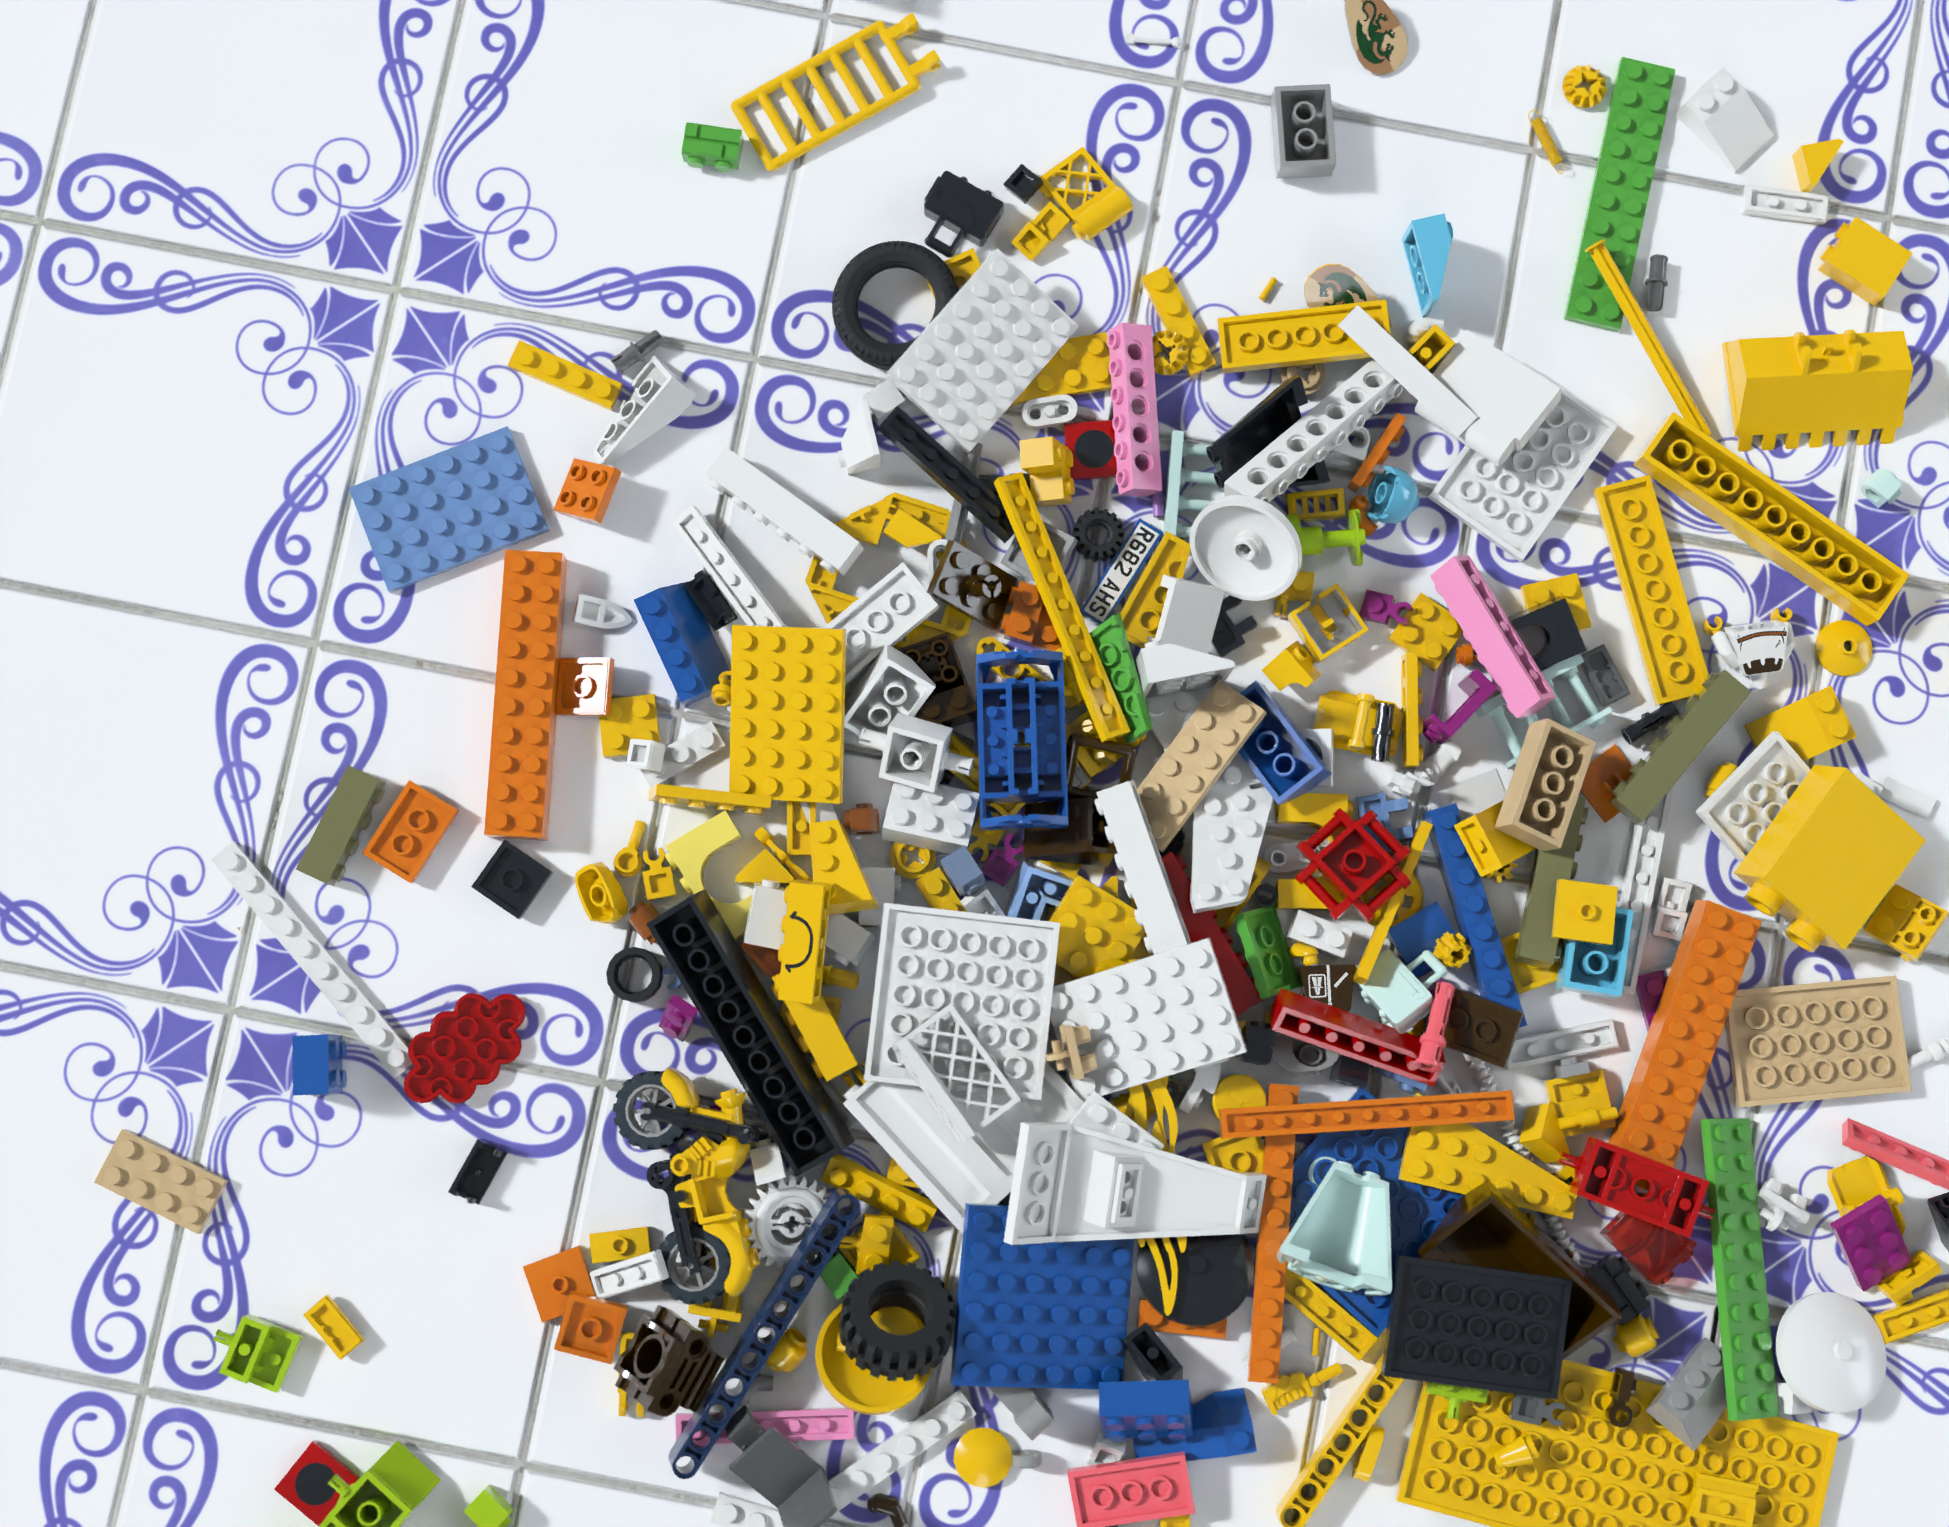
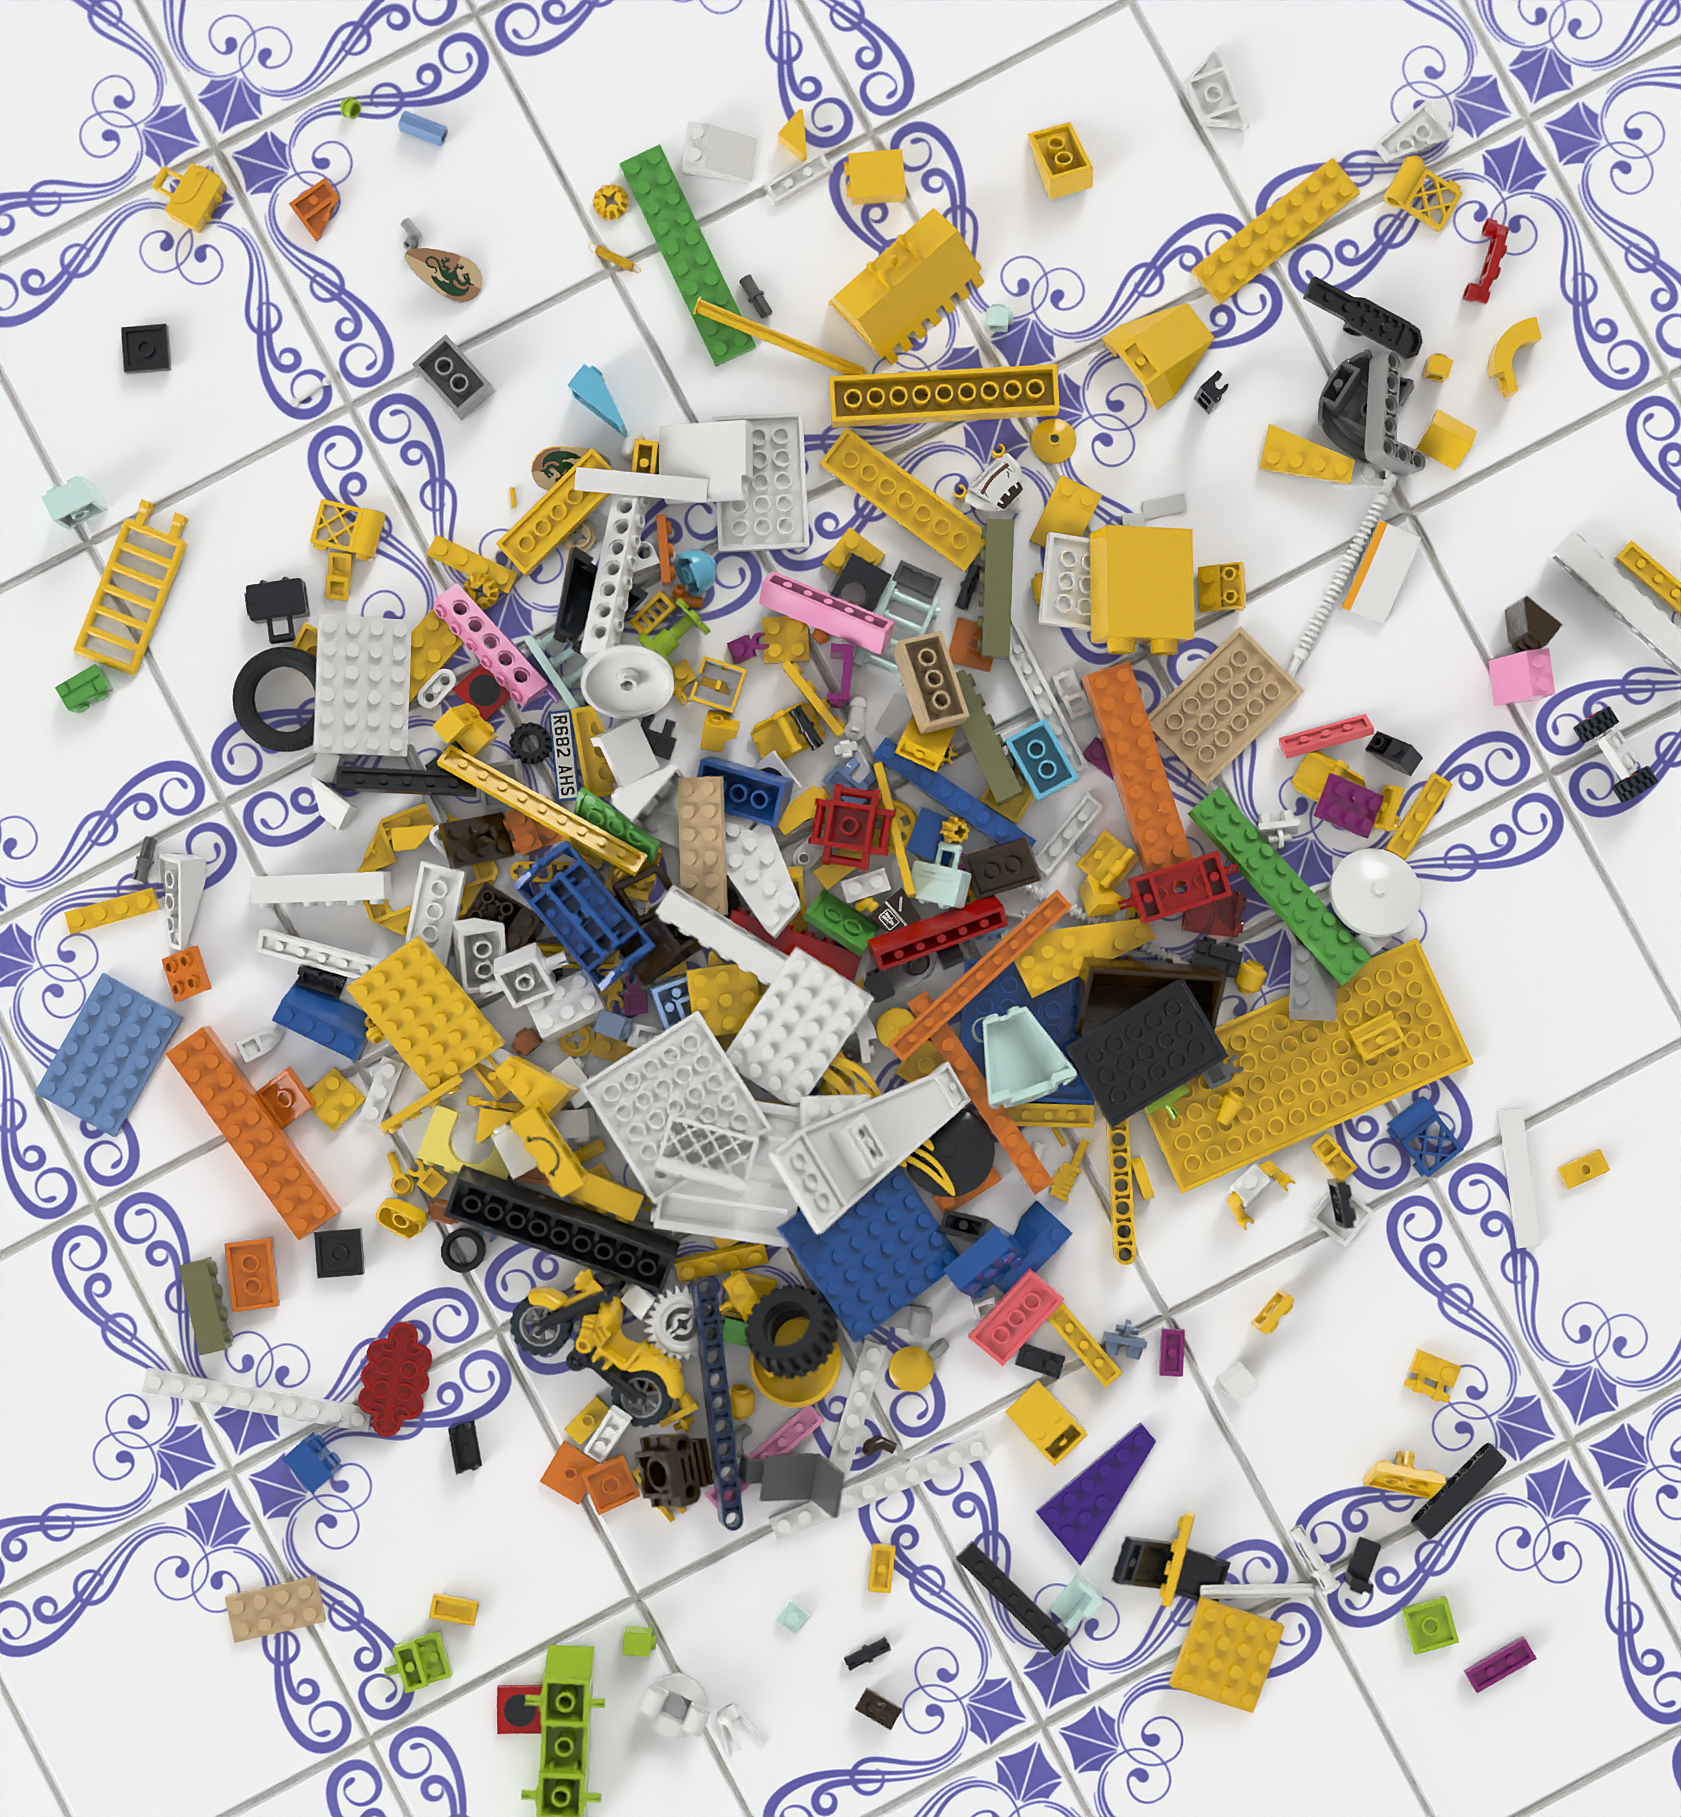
camera: 30 degrees left, 5 degrees up
(645, 755) = (359, 1110): white slope -> none
(678, 1018) = (511, 1256): magenta plate -> none
(1023, 183) = (302, 554): black plate -> none
(1077, 1064) = (761, 1074): tan hips -> none
(1265, 901) = (815, 892): black hinge -> none
(1433, 1040) = (984, 898): coral pin -> none
(1584, 912) = (1015, 743): yellow plate -> none
(1622, 1388) = (1264, 1017): dark brown plate -> none

